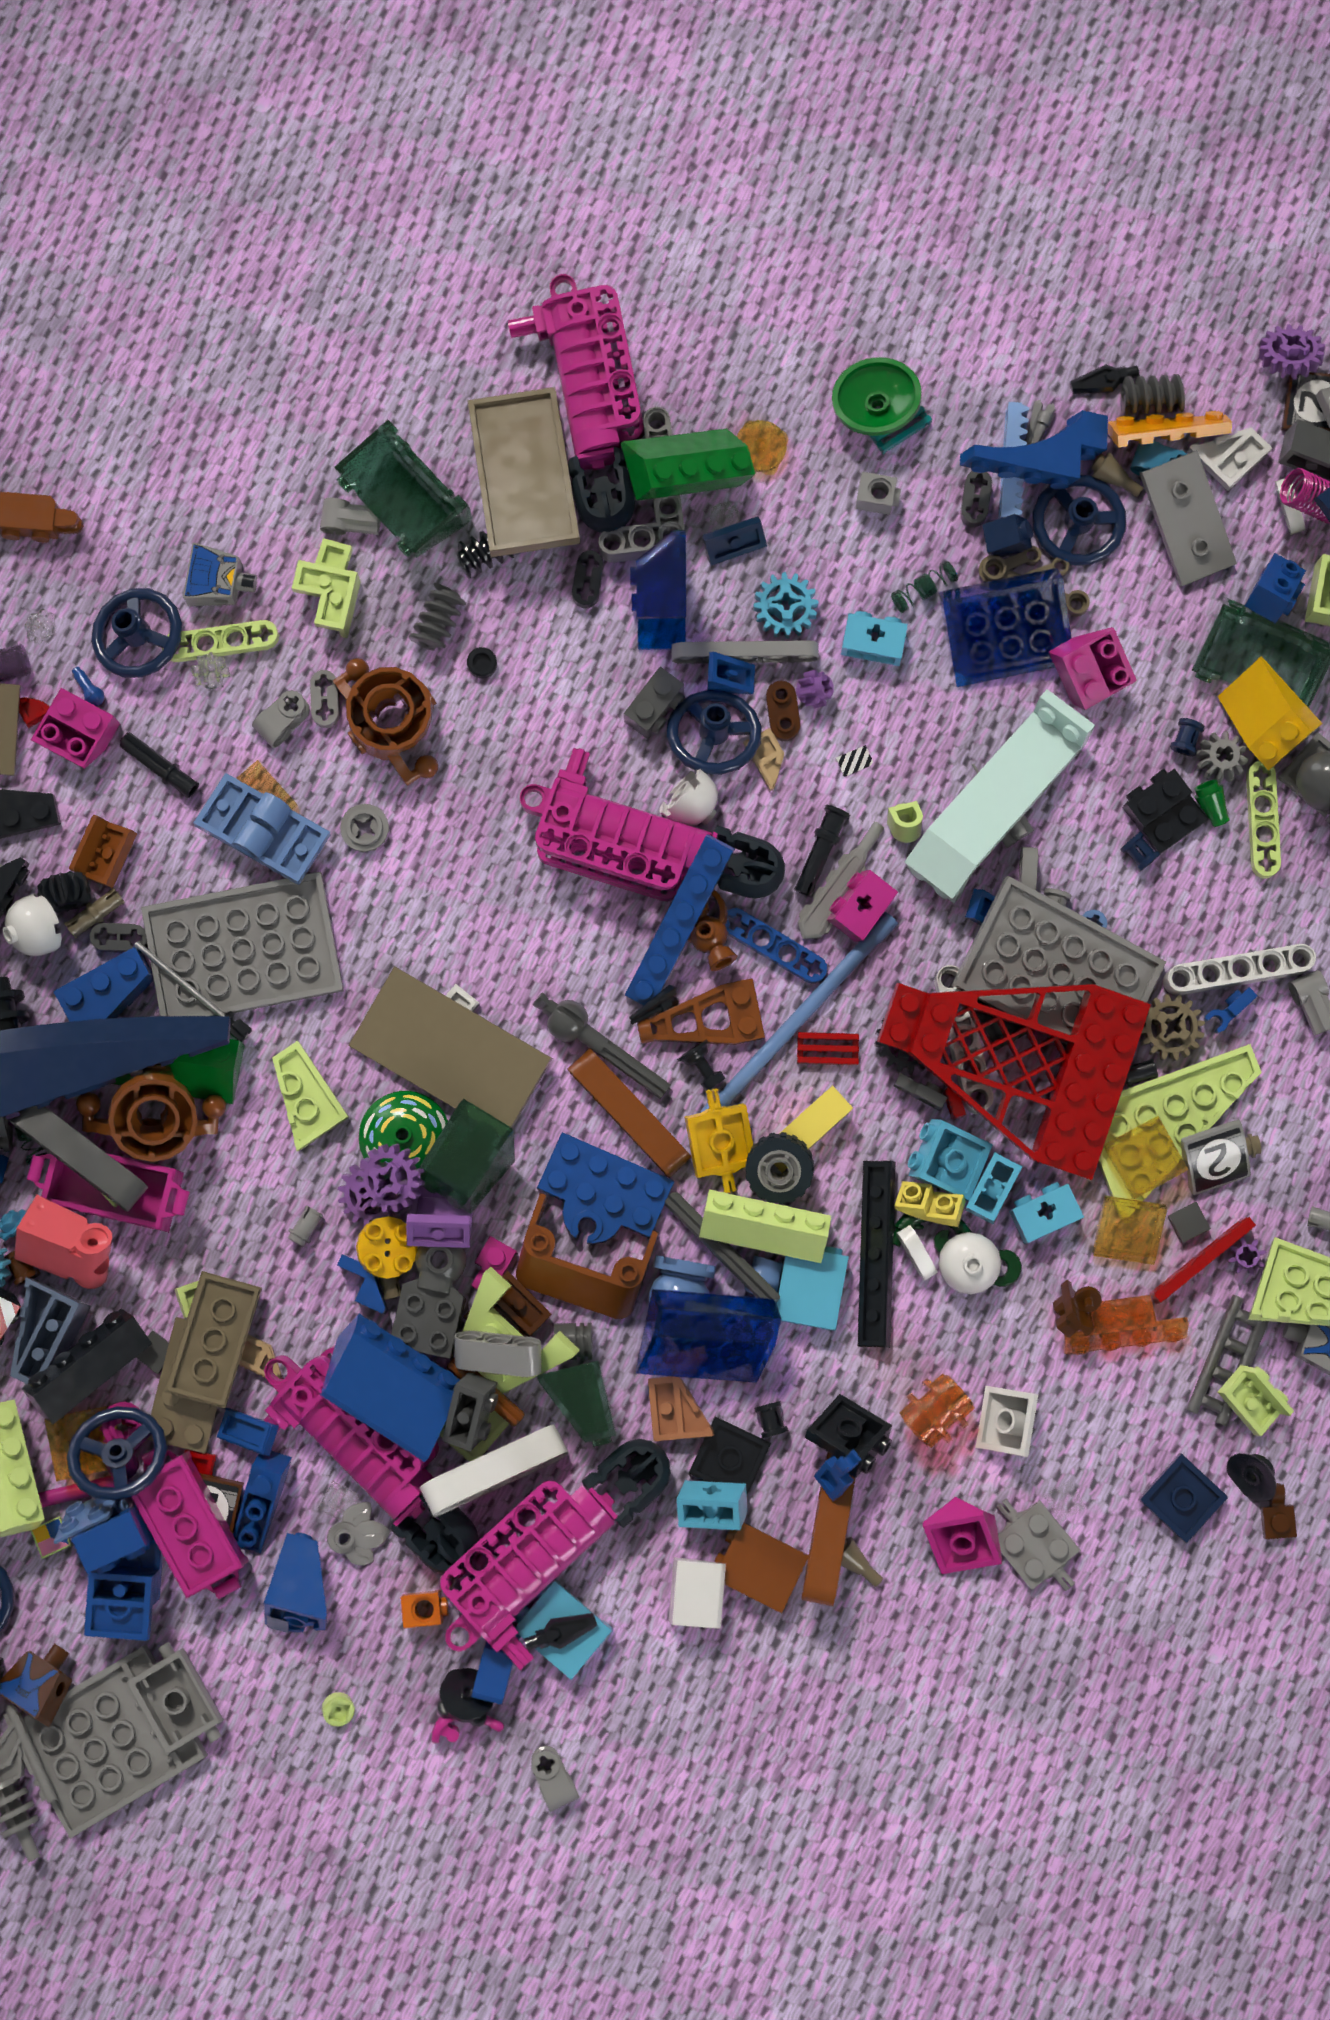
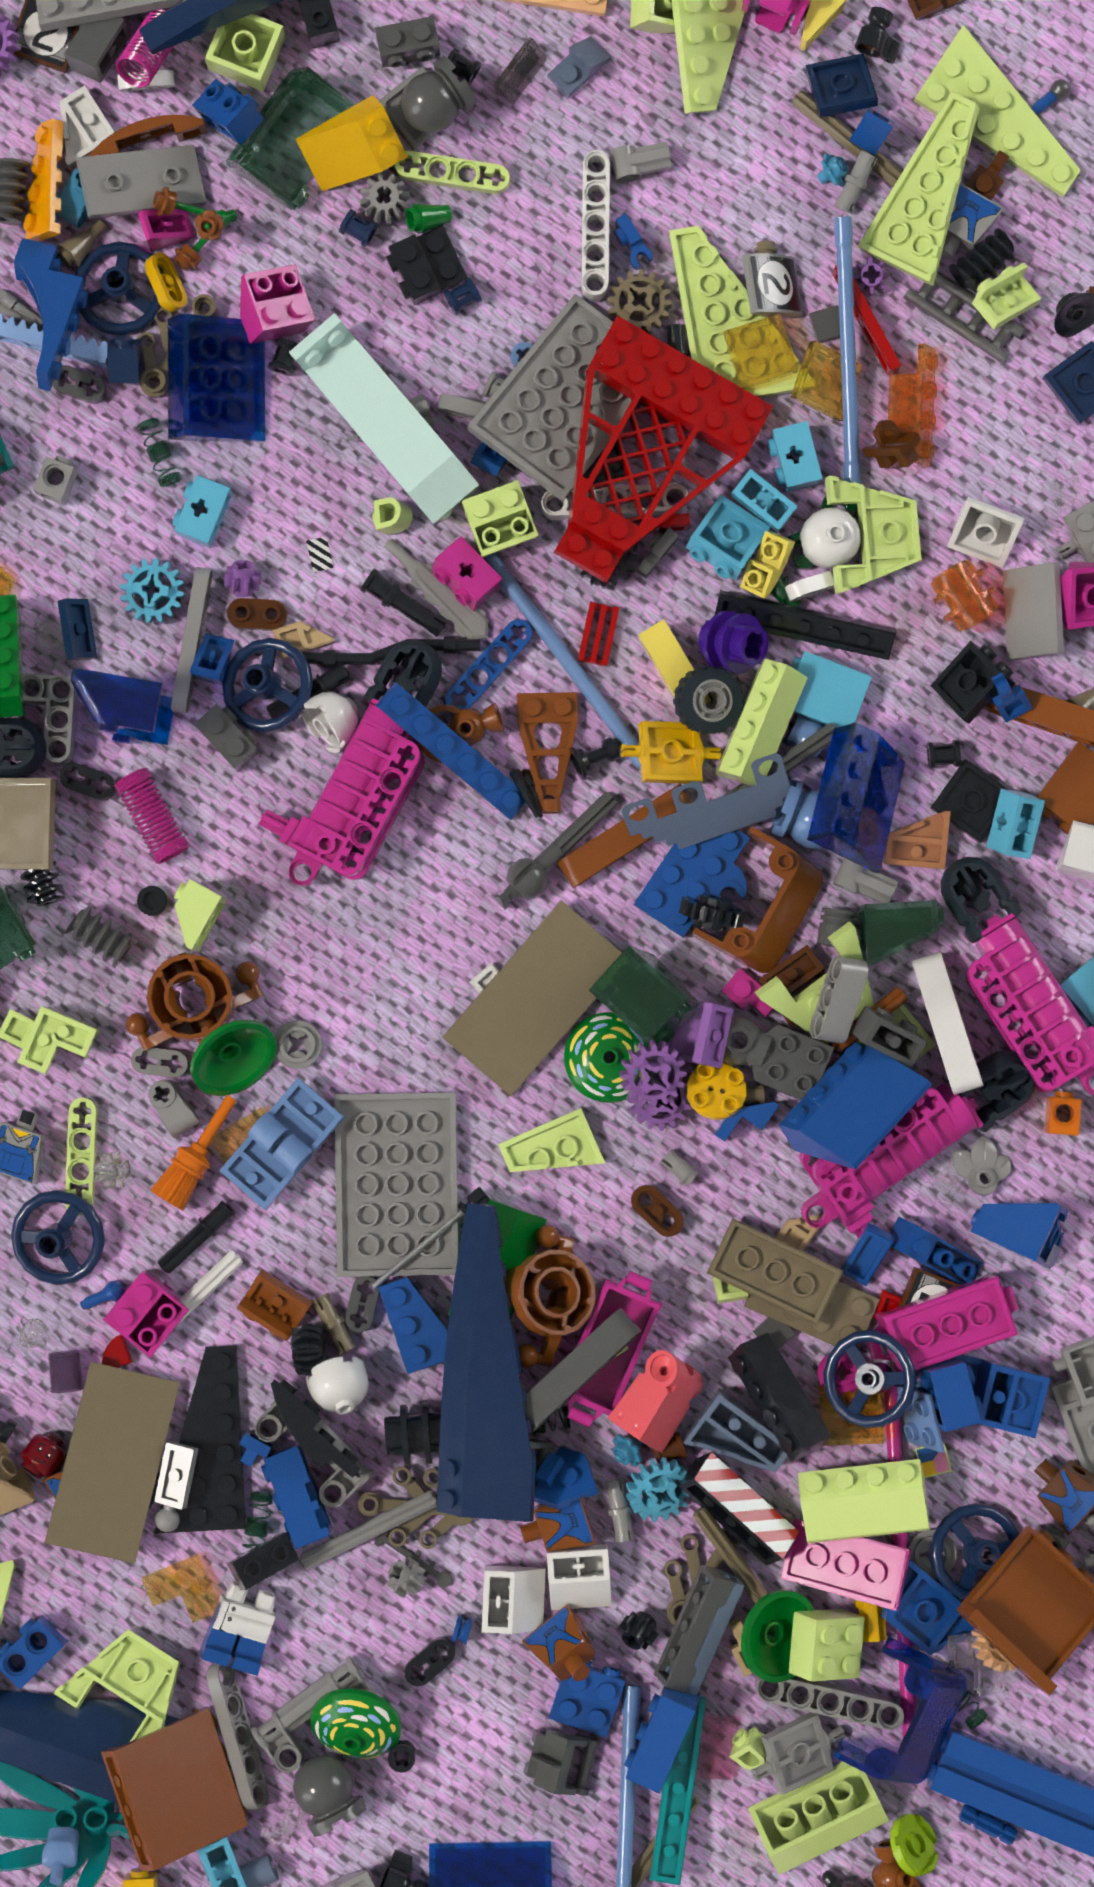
camera: 80 degrees left, 5 degrees up
(117, 786) = (211, 1281): none -> white axle
(229, 745) = (190, 1162): none -> orange piece
(258, 1211) = (657, 1210): none -> reddish brown plate
(338, 764) = (233, 1057): none -> green dish
(474, 704) = (197, 912): none -> yellowish green slope
(563, 1208) = (712, 912): none -> black gear
(580, 638) = (148, 798): none -> dark pink piece
(625, 1354) = (863, 881): none -> light grey piece
(661, 1196) = (710, 819): none -> sand blue piece
(725, 785) = (323, 683): none -> black axle
(753, 790) = (330, 658): none -> black bar
(843, 1182) = (733, 641): none -> dark purple piece
(923, 927) = (499, 518): none -> yellowish green slope
(934, 1485) = (1033, 611): none -> light grey tile
(988, 1319) = (886, 528): none -> yellowish green wing
(1038, 686) = (282, 360): none -> black bush
(1089, 563) = (167, 285): none -> yellow plate
(1148, 550) = (165, 229): none -> dark pink slope
(1157, 587) = (208, 222): none -> dark orange plant
(1252, 548) = (183, 125): none -> dark orange slope
(1271, 1220) = (843, 242): none -> medium blue piece
(1286, 1370) = (983, 260): none -> black piece

